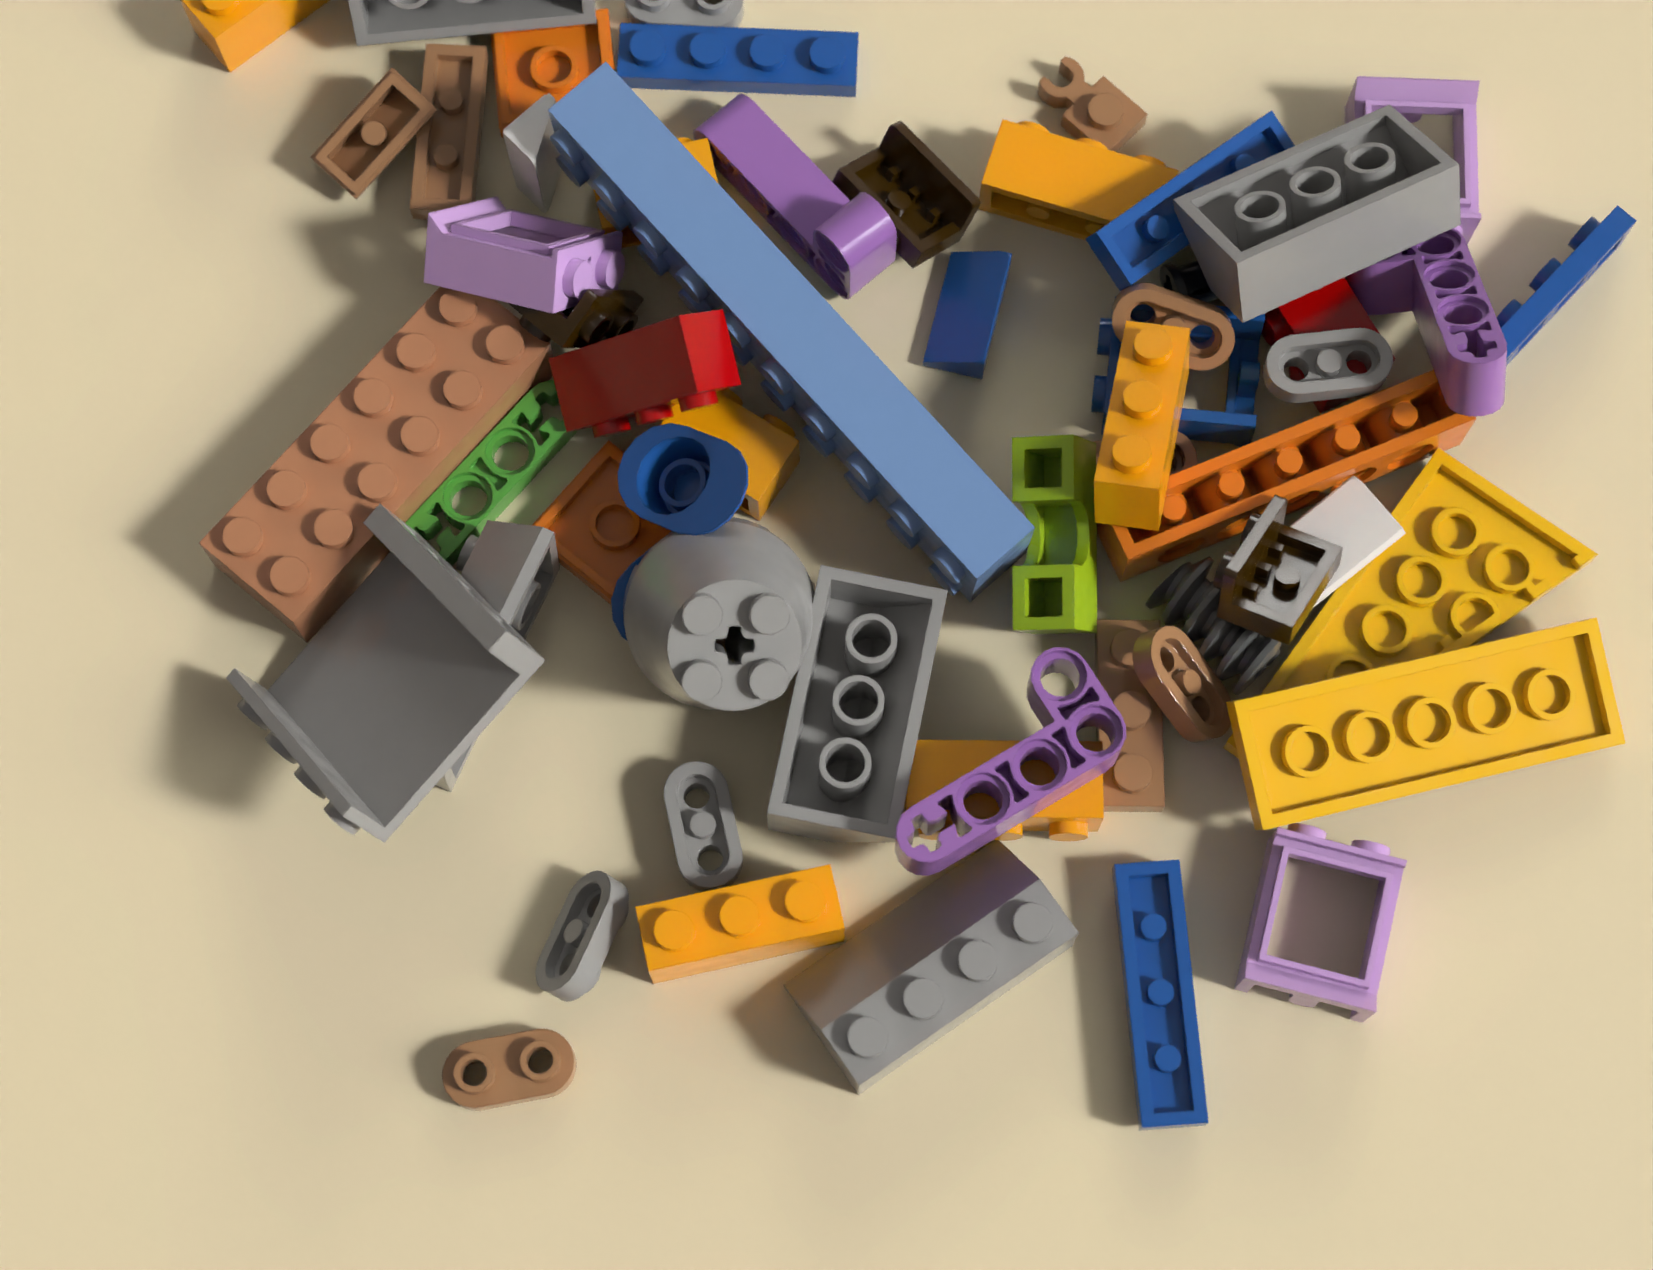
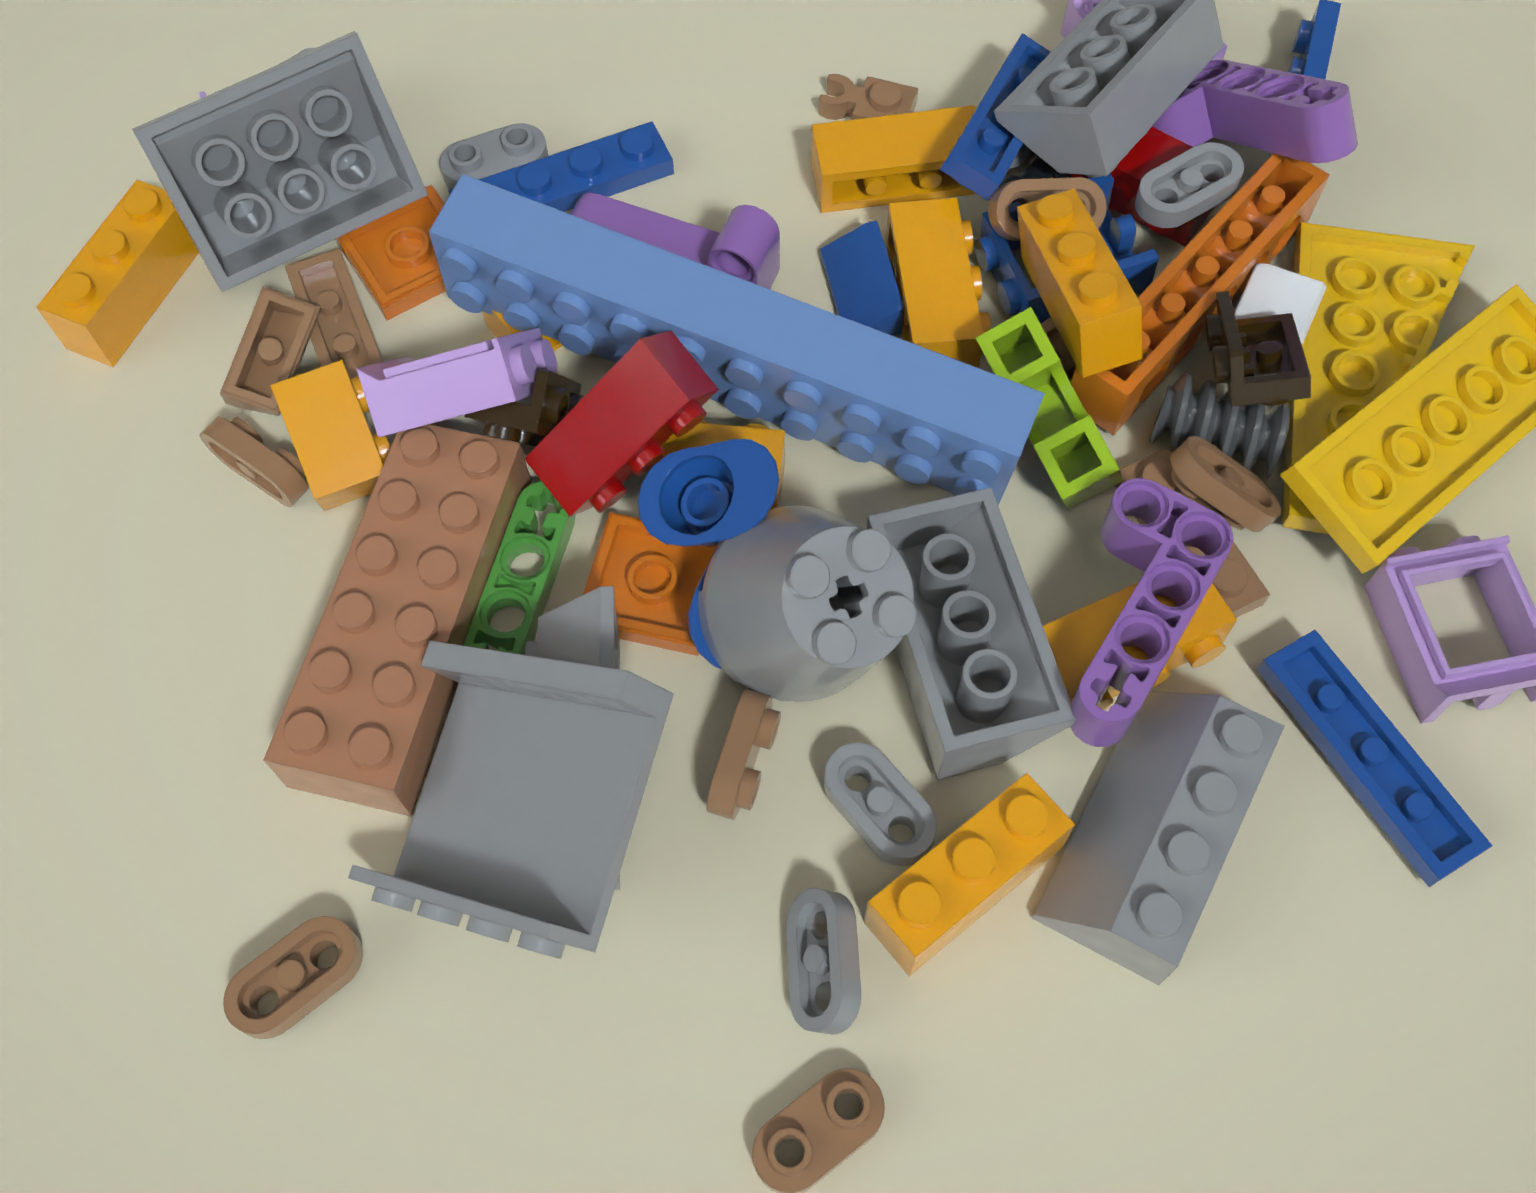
camera: 25 degrees left, 10 degrees down
(152, 737) = (294, 974): none -> medium nougat plate
(327, 259) = (242, 451): none -> medium nougat plate
(388, 250) = (332, 433): none -> light orange brick
(533, 153) = (424, 300): white slope -> none
(590, 743) = (734, 779): none -> medium nougat plate
(916, 191) = (792, 204): dark brown bracket -> none
(1034, 347) = (935, 279): none -> light orange brick

